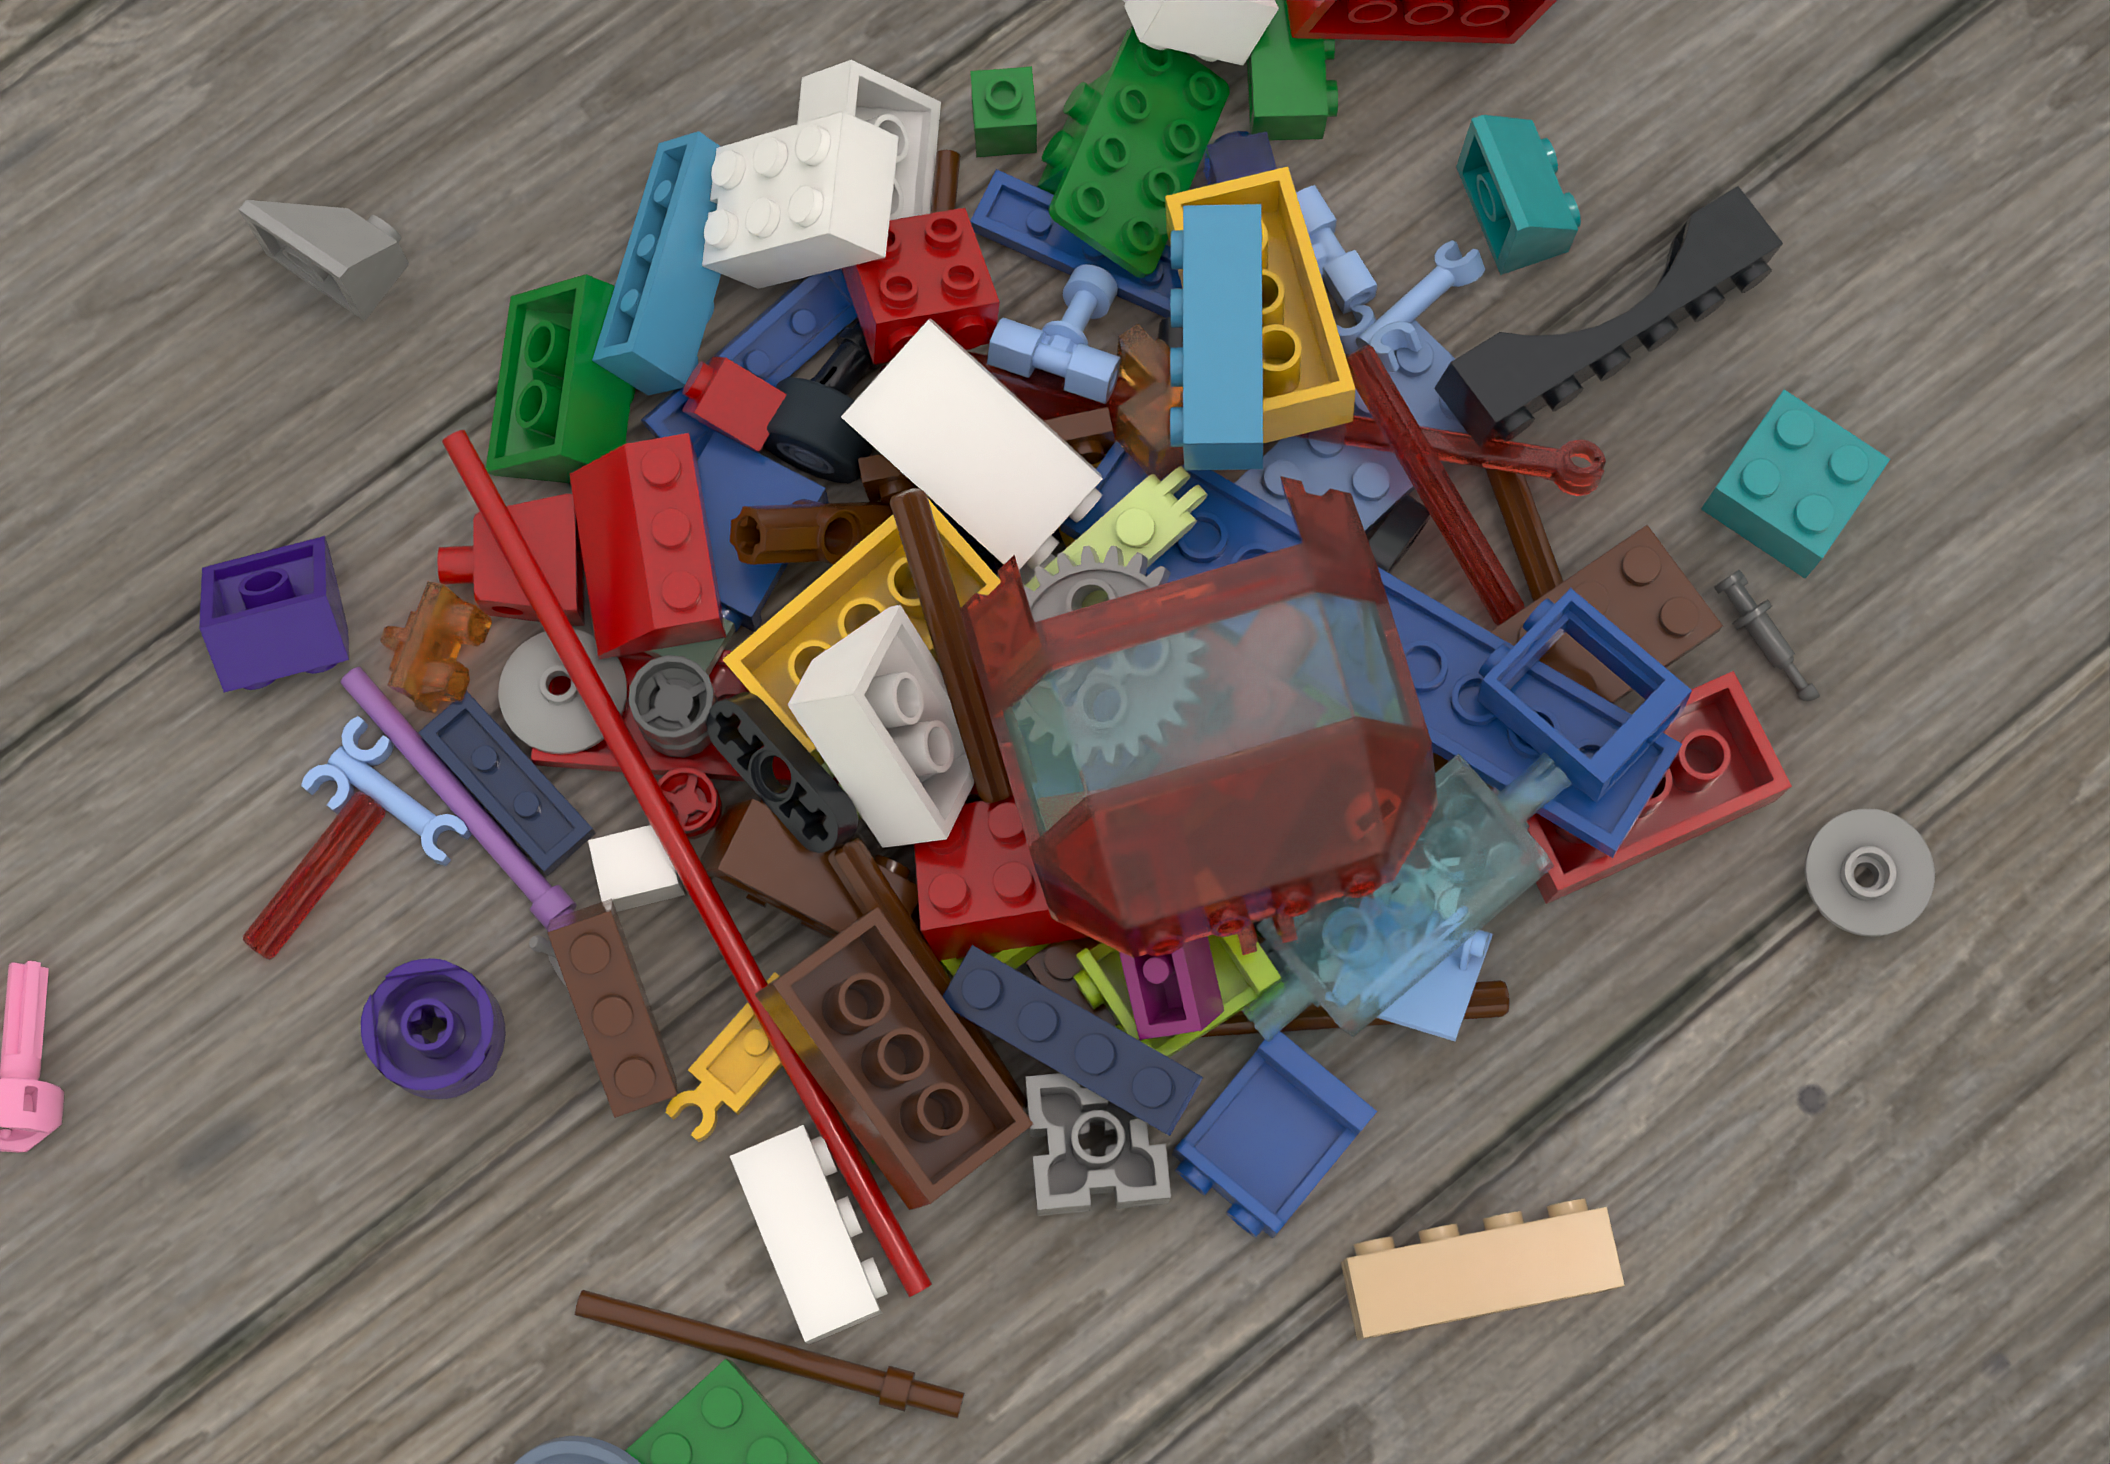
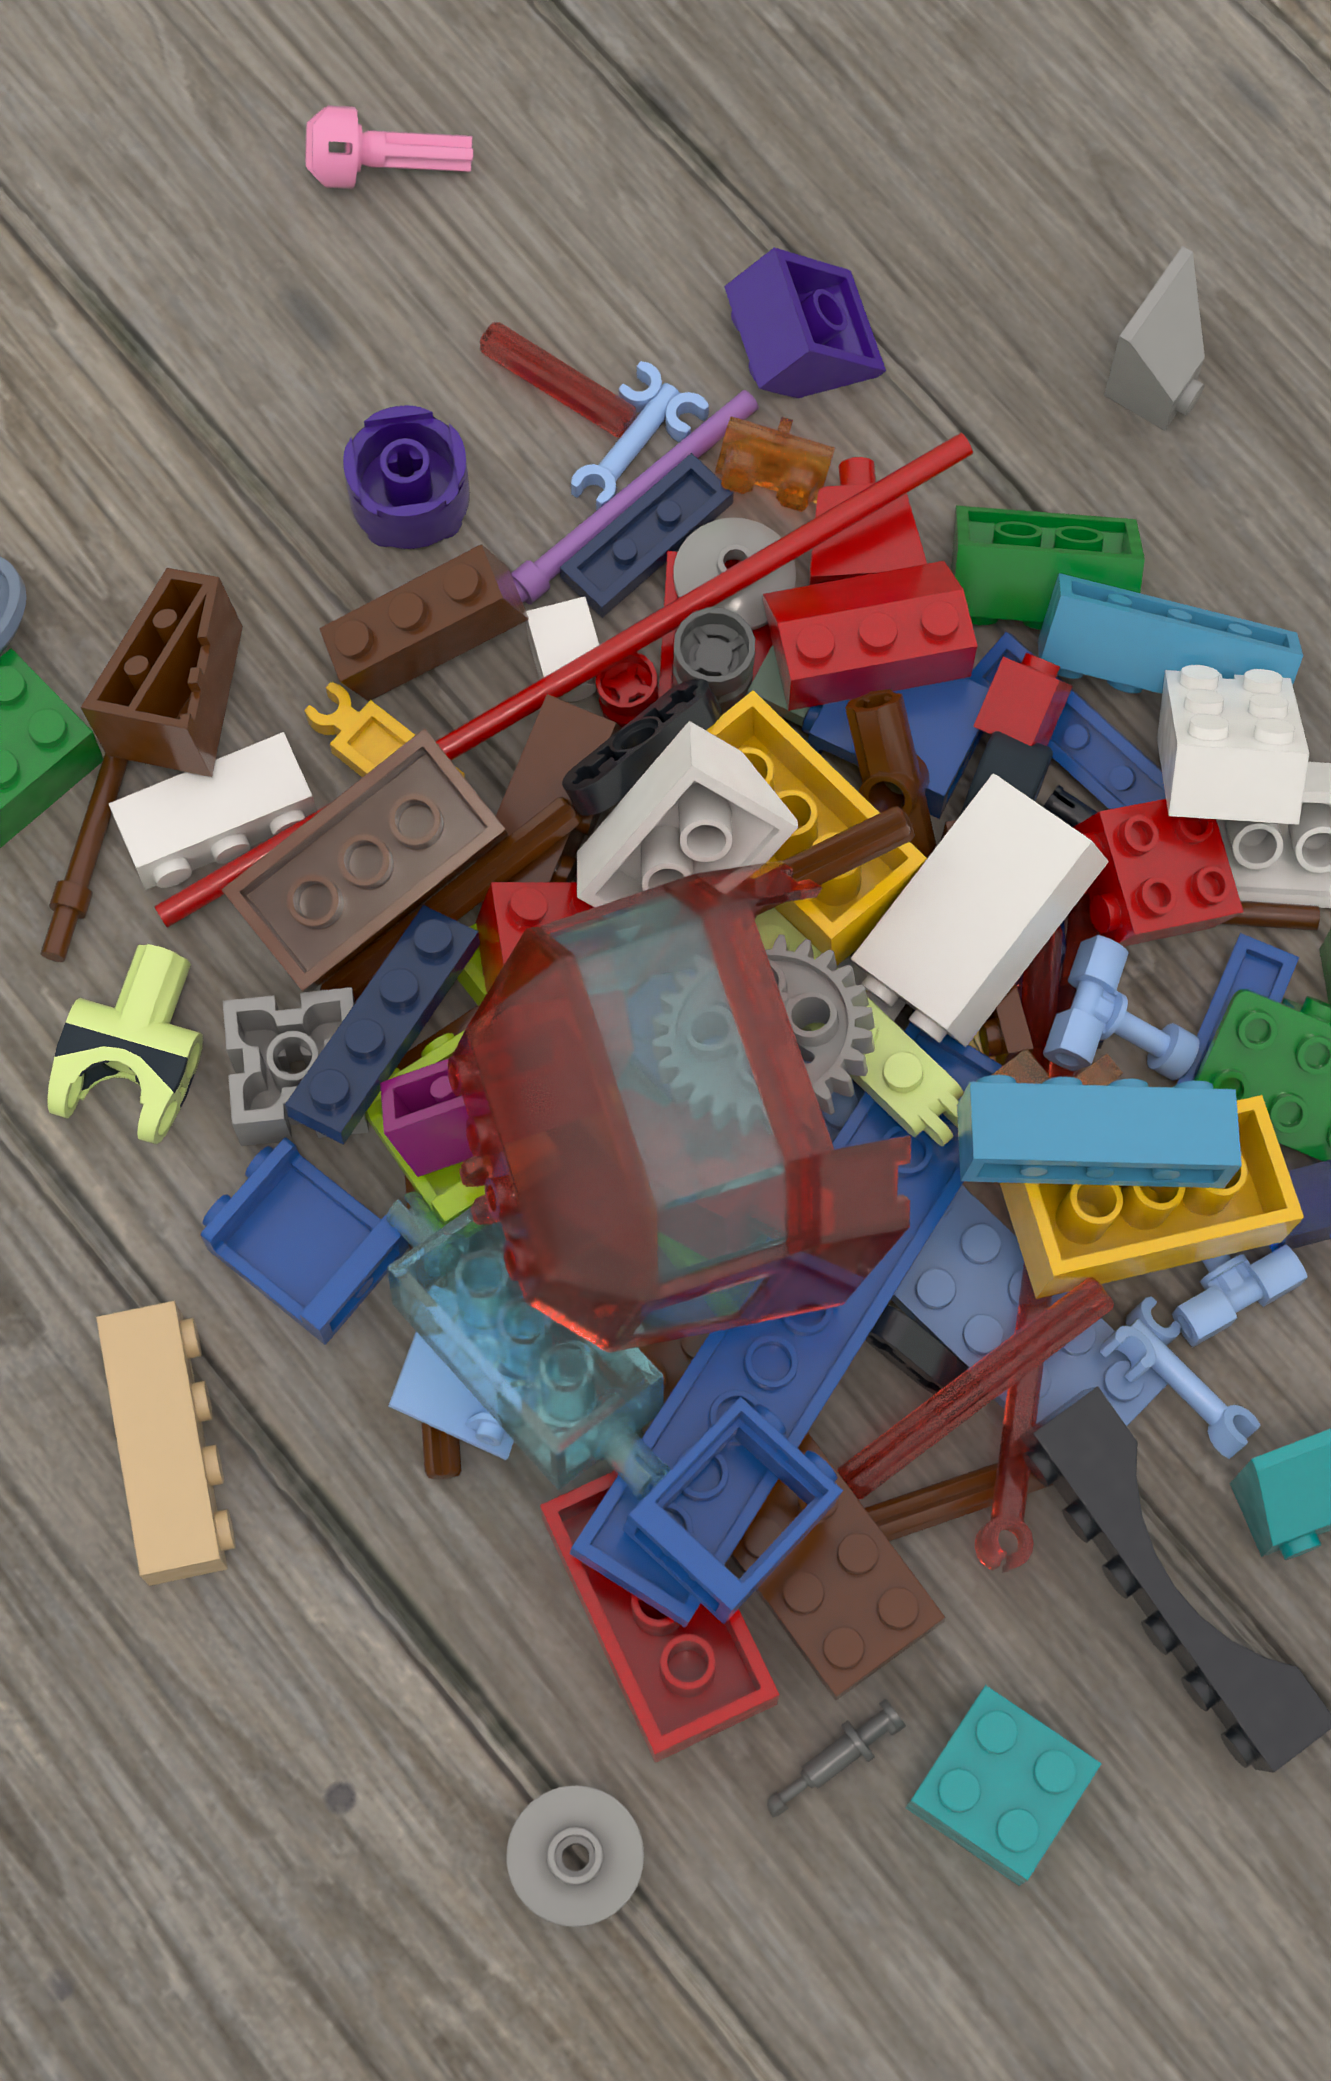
camera: 90 degrees right, 5 degrees down
(664, 1276) = (170, 677): none -> reddish brown wedge
(1057, 1315) = (131, 1044): none -> yellowish green connector

